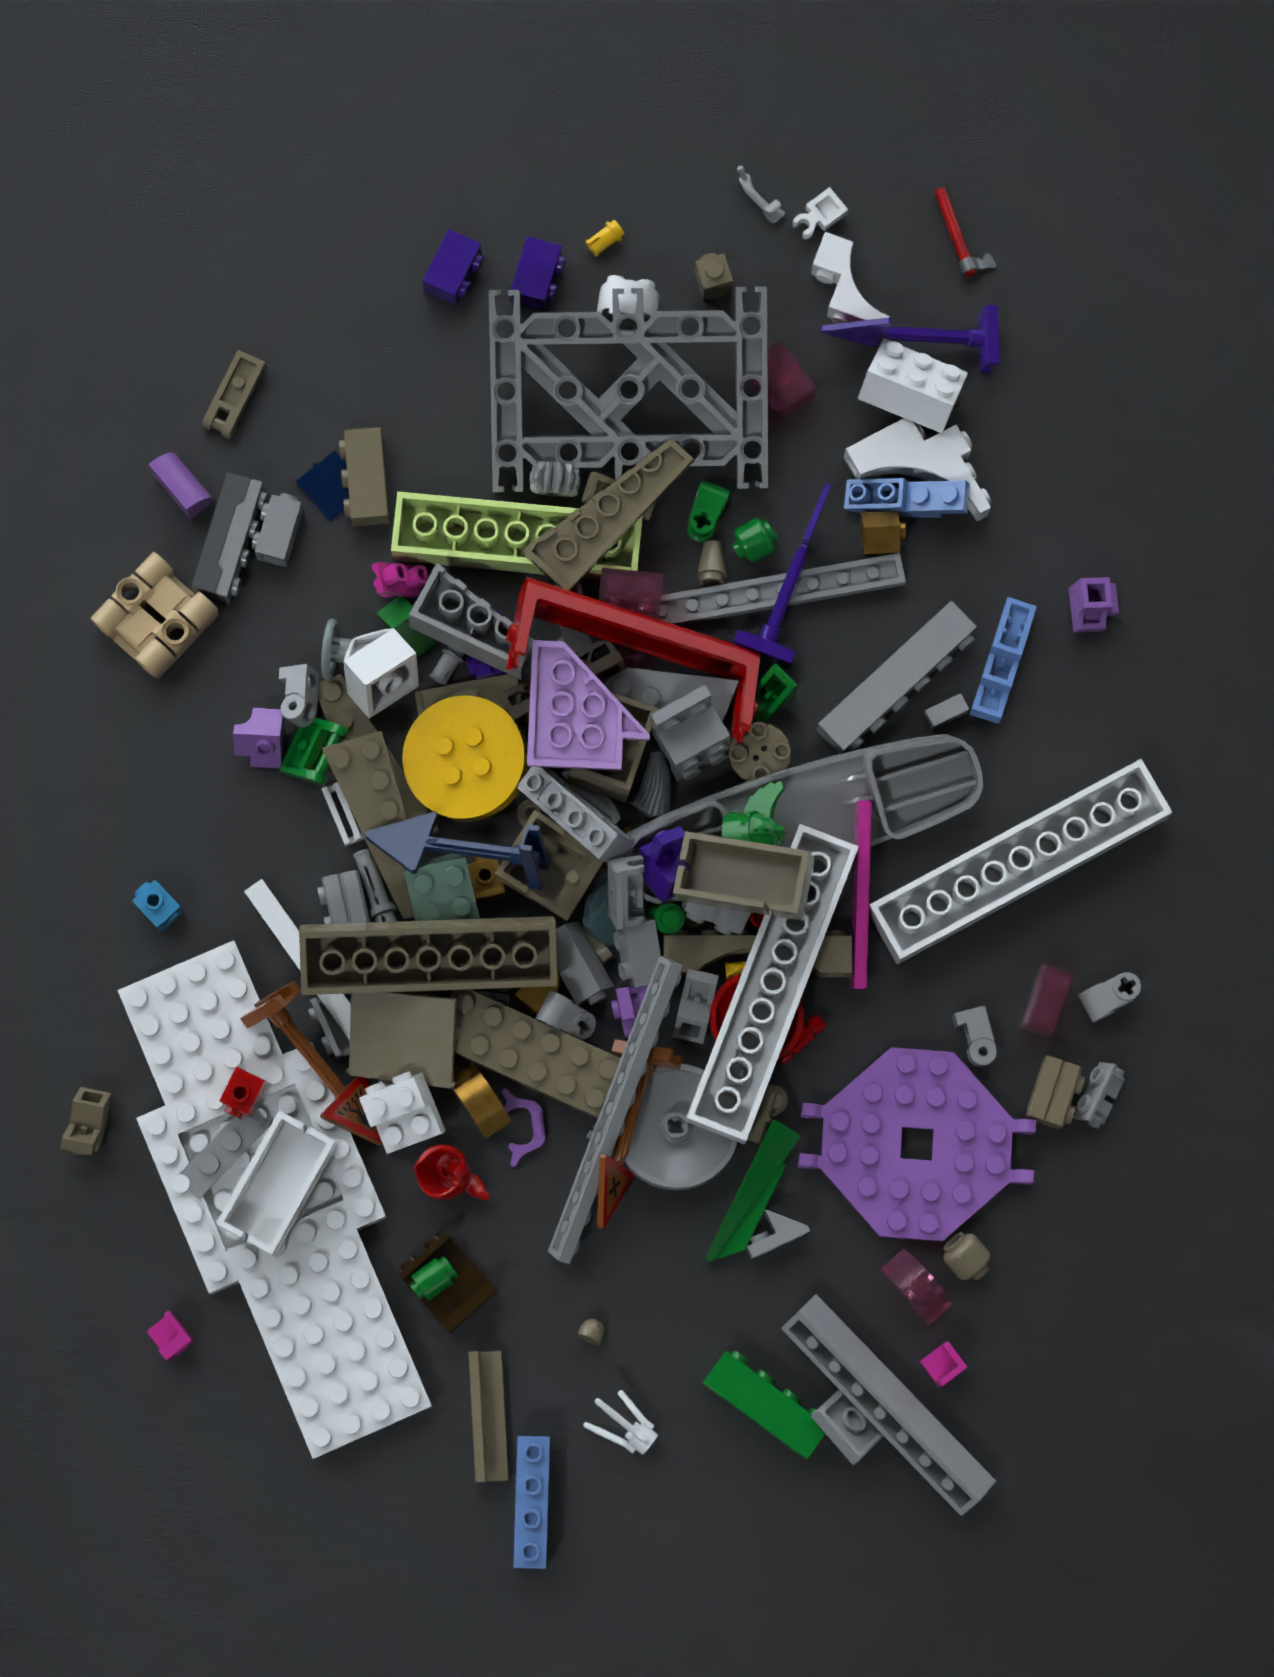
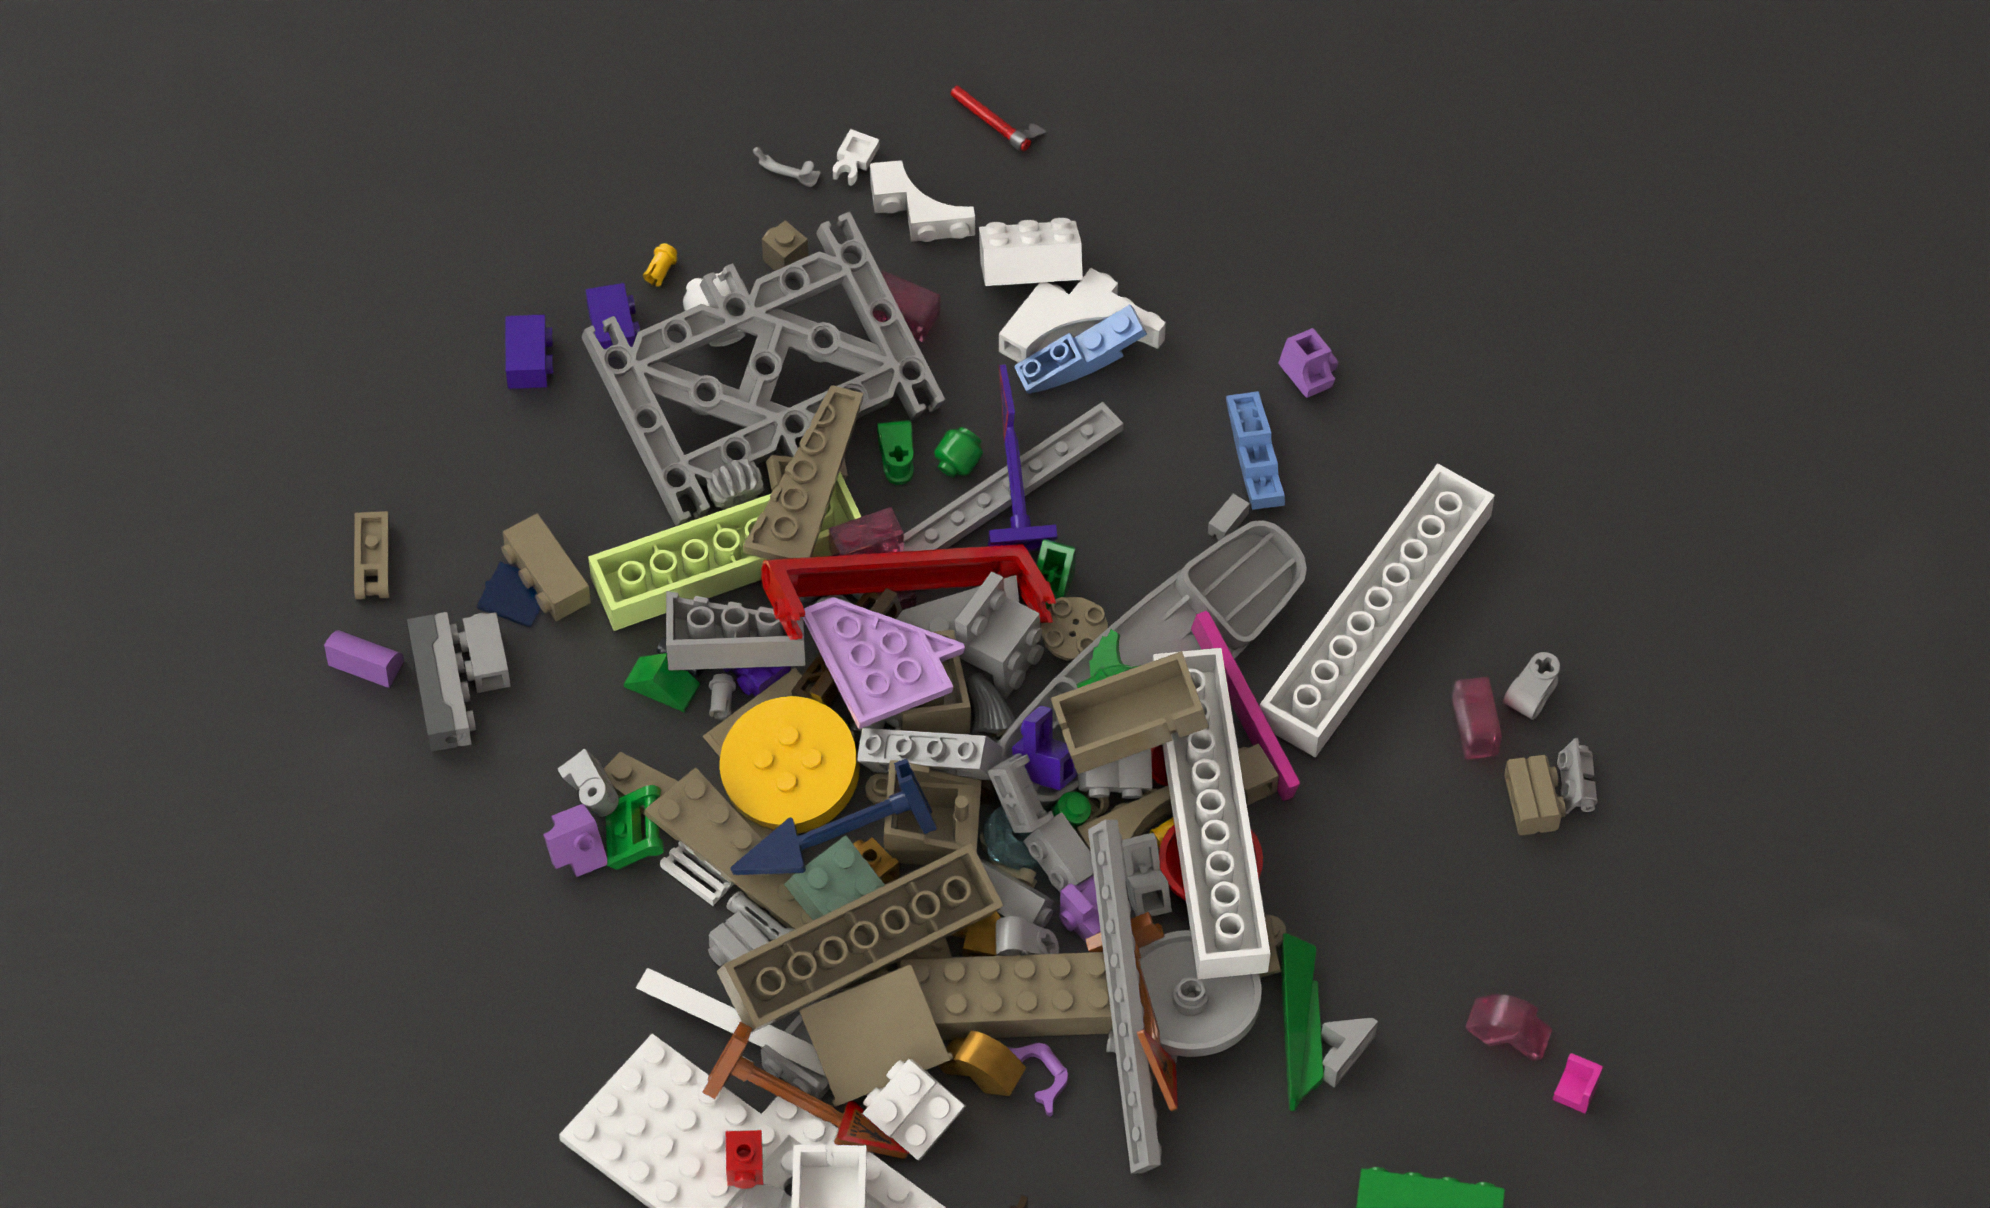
camera: 25 degrees left, 20 degrees down
(138, 631) = (398, 804): tan piece -> none
(157, 904) = (554, 1041): dark azure brick -> none
(376, 666) = (657, 718): white piece -> none
(399, 579) = (631, 638): dark pink hips -> none
(446, 1174) = (990, 1146): red hair -> none
(711, 565) = (929, 493): dark tan cone -> none
(814, 1026) = (1270, 848): red axle -> none
(847, 1427) = (1522, 1175): light grey plate -> none
(871, 331) = (959, 226): dark purple piece -> none
(881, 532) = (1075, 391): pearl gold brick -> none
(889, 1405) = (1548, 1142): light grey brick -> none
(897, 678) = (1165, 509): light grey brick -> none
(914, 1195) = (1448, 954): medium lavender plate -> none
(966, 1256) = (1540, 977): dark tan head -> none
(979, 1035) = (1430, 779): light grey leg -> none

